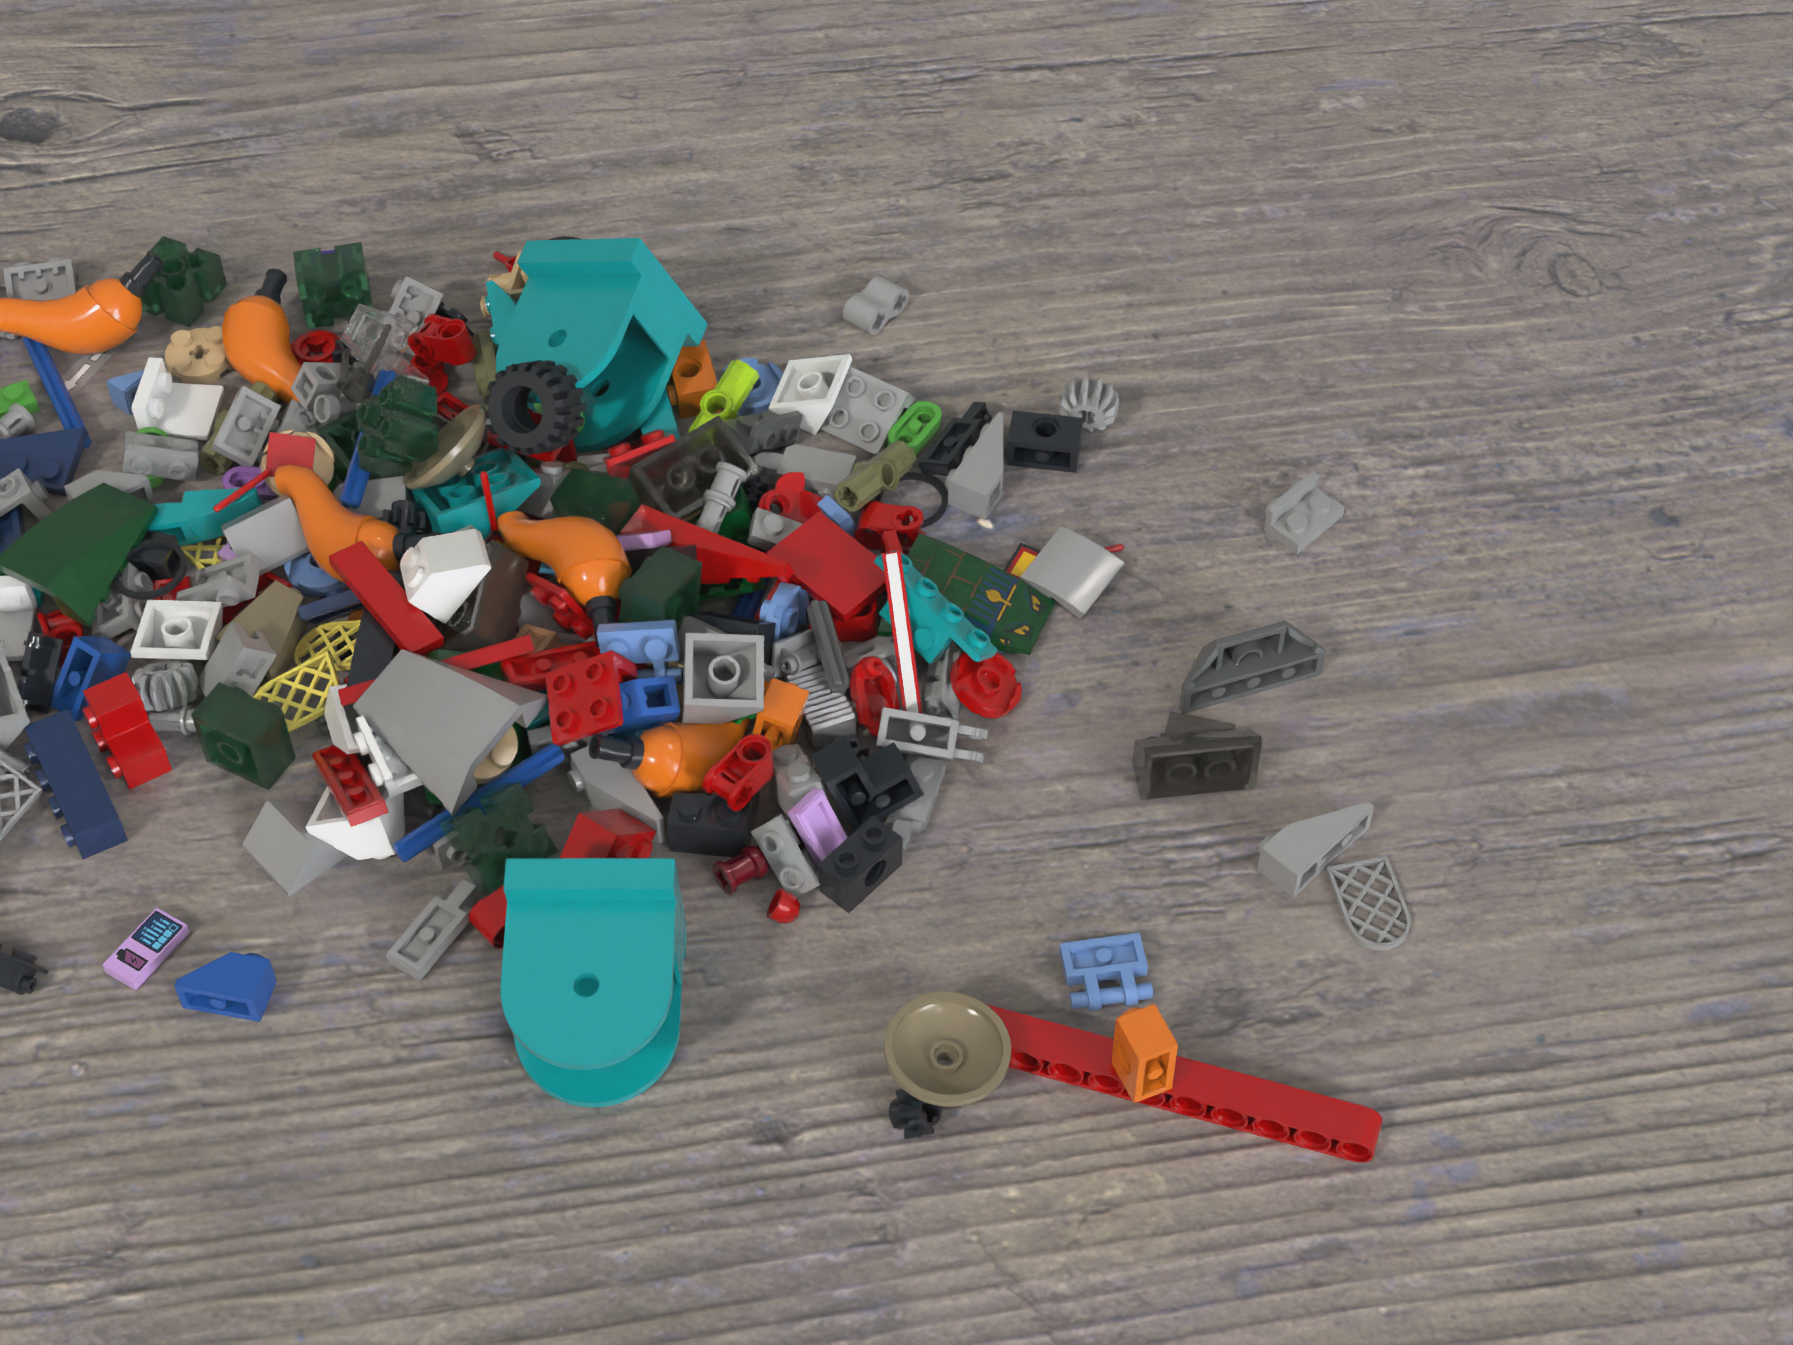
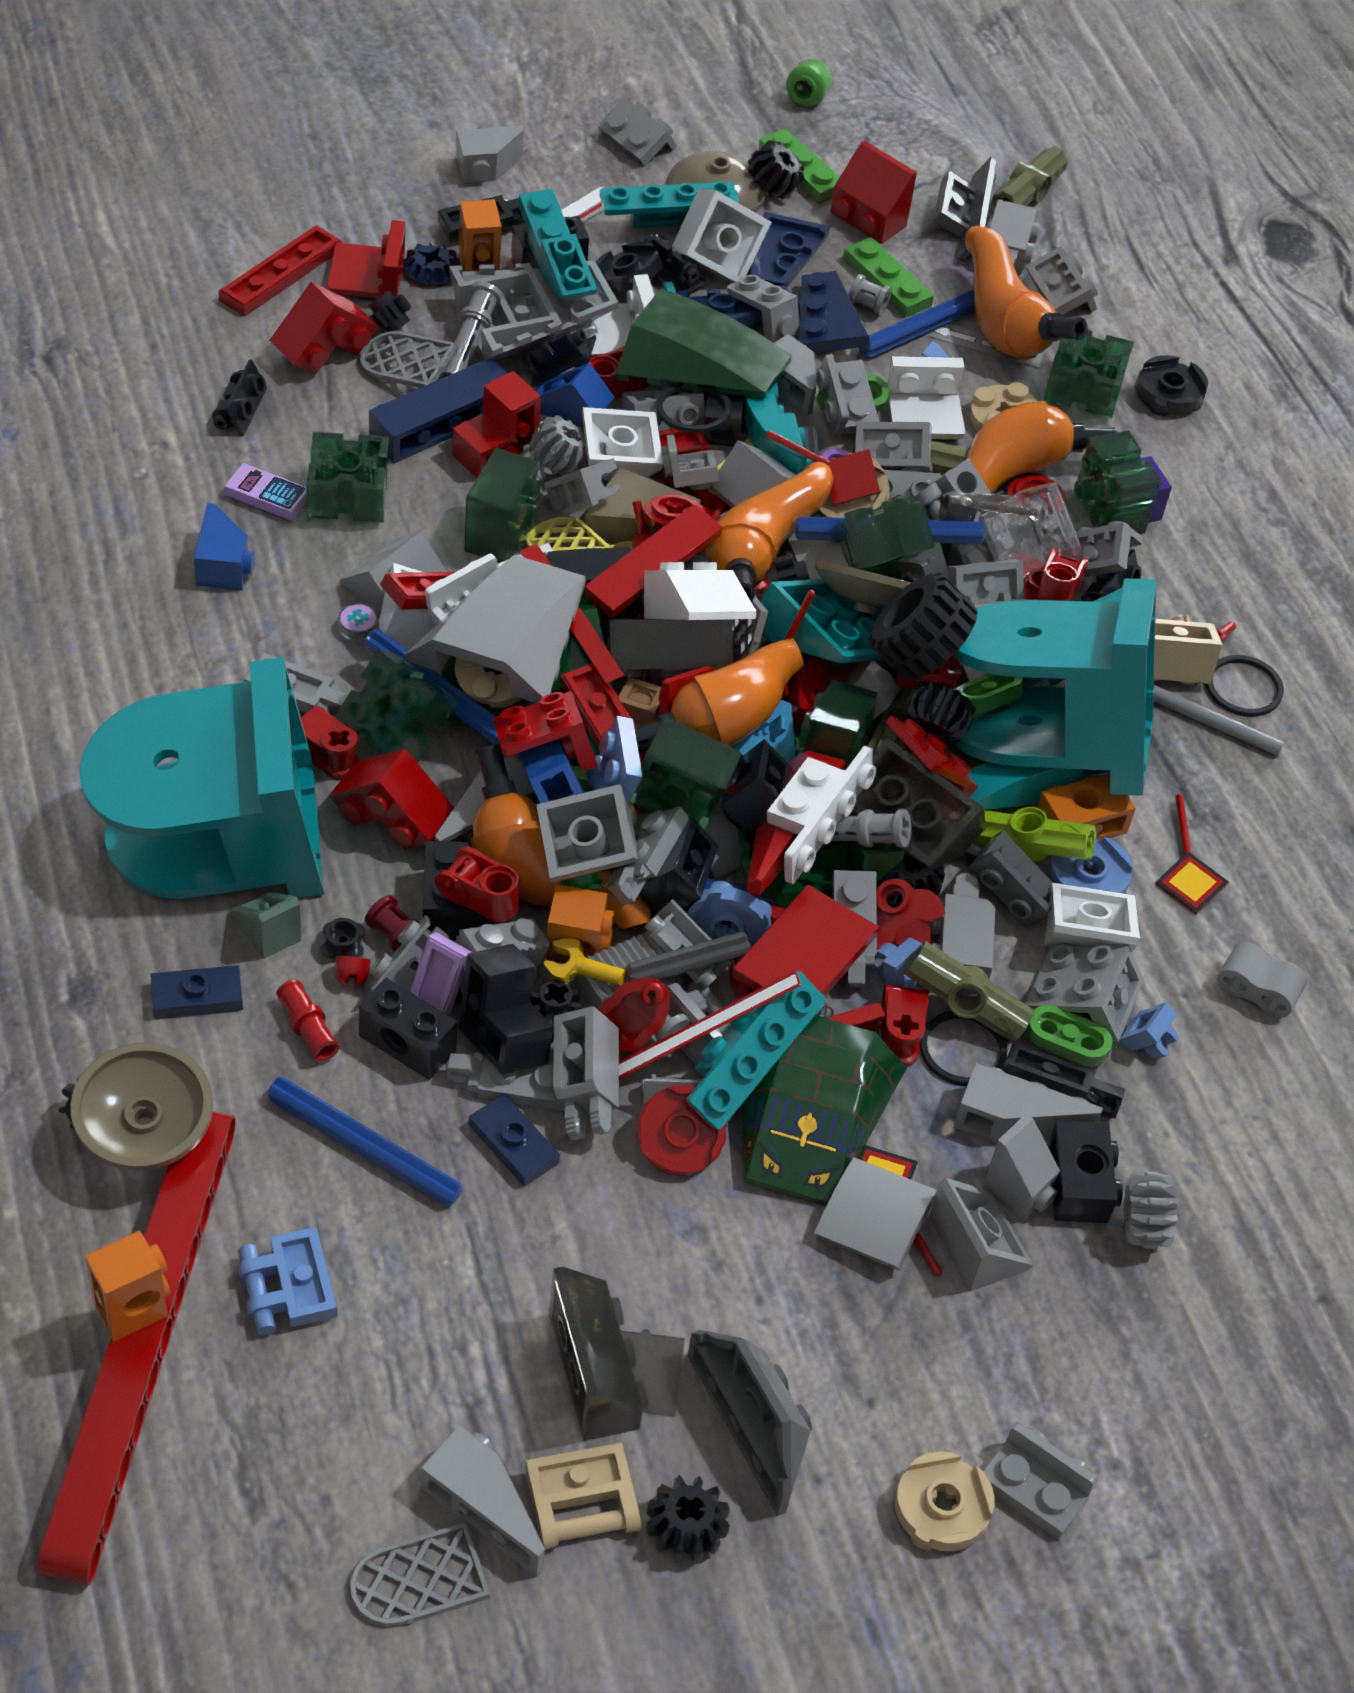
camera: 75 degrees right, 0 degrees up
(161, 864) = (347, 477): none -> clear green brick
(218, 230) = (1187, 387): none -> black plate
(309, 581) = (667, 507): none -> red gear
(311, 633) = (642, 528): none -> red hand
(351, 879) = (357, 621): none -> tile
(463, 386) = (989, 581): none -> light grey bracket
(595, 436) = (940, 710): none -> black gear
(645, 540) = (781, 750): lavender tile -> none
(702, 521) = (815, 804): none -> white bracket
(718, 966) = (270, 922): none -> sand green slope
(744, 904) = (343, 930): none -> black plate
(762, 332) = (1189, 878): none -> piece
(788, 1032) = (196, 991): none -> dark blue plate
(821, 724) = (581, 965): none -> yellow bar
(836, 943) = (308, 1020): none -> red pin
(916, 377) = (1150, 1029): none -> medium blue tile
(966, 912) = (365, 1141): none -> blue axle
(974, 804) = (514, 1139): none -> dark blue plate
(1046, 474) = (1023, 1170): none -> light grey slope
(1099, 515) = (977, 1234): none -> light grey slope
(1296, 784) = (579, 1480): none -> tan plate
(1313, 585) = (932, 1526): none -> tan plate
(1333, 720) = (692, 1534): none -> black gear

